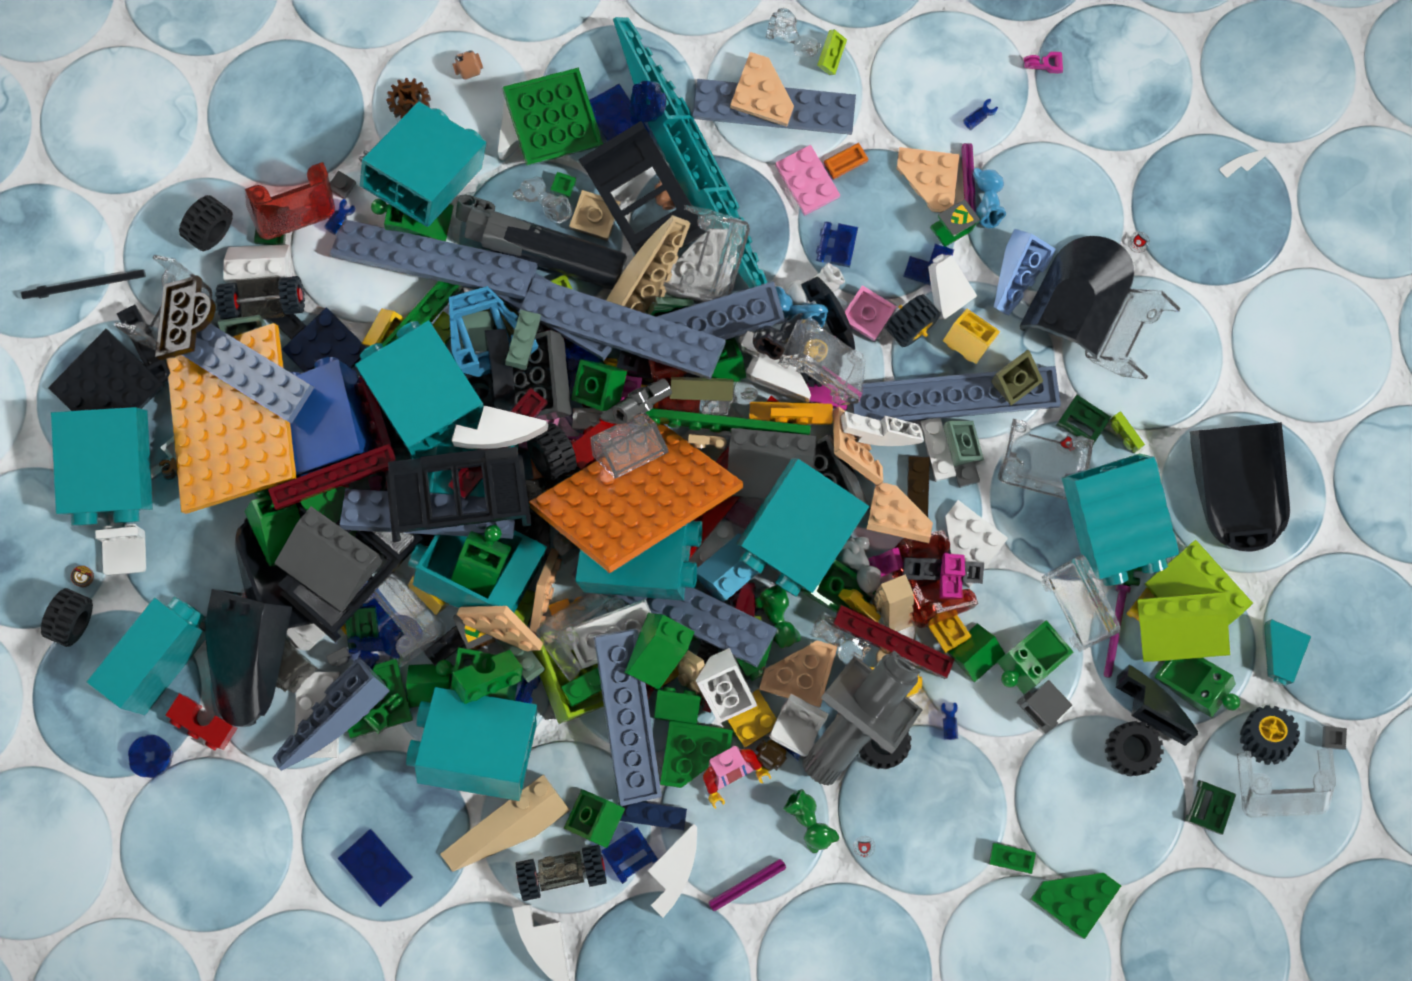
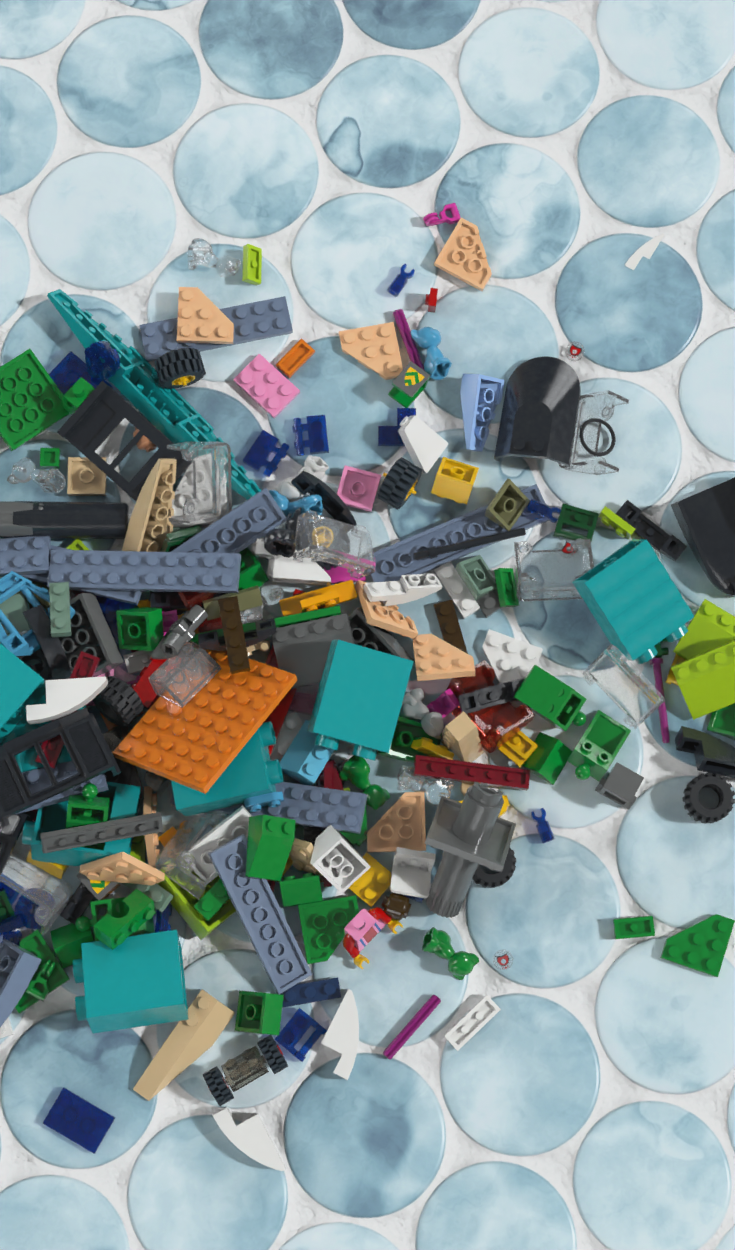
camera: 20 degrees left, 0 degrees up
(491, 579) = (101, 832): none -> dark grey tile
(610, 128) = (76, 395): none -> green torso
(676, 602) = (270, 799): none -> dark azure plate
(692, 421) = (234, 635): none -> dark brown plate
(695, 429) = (263, 630): none -> black slope
(724, 133) = (179, 368): none -> black wheel
(780, 244) = (261, 450): none -> clear blue plate
(811, 901) = (472, 1022): none -> white plate
(925, 402) = (433, 552): none -> black bar
(951, 576) = (503, 697): dark pink slope -> none
(990, 462) = (506, 587): none -> green plate
(1001, 593) = (551, 699): none -> green slope
(1005, 144) = (431, 299): none -> red plate
(1054, 394) = (543, 510): none -> clear blue bar
(1055, 110) = (465, 256): none -> light nougat plate
(1150, 335) = (584, 444): none -> black tyre
(1169, 467) = (646, 529): none -> black slope

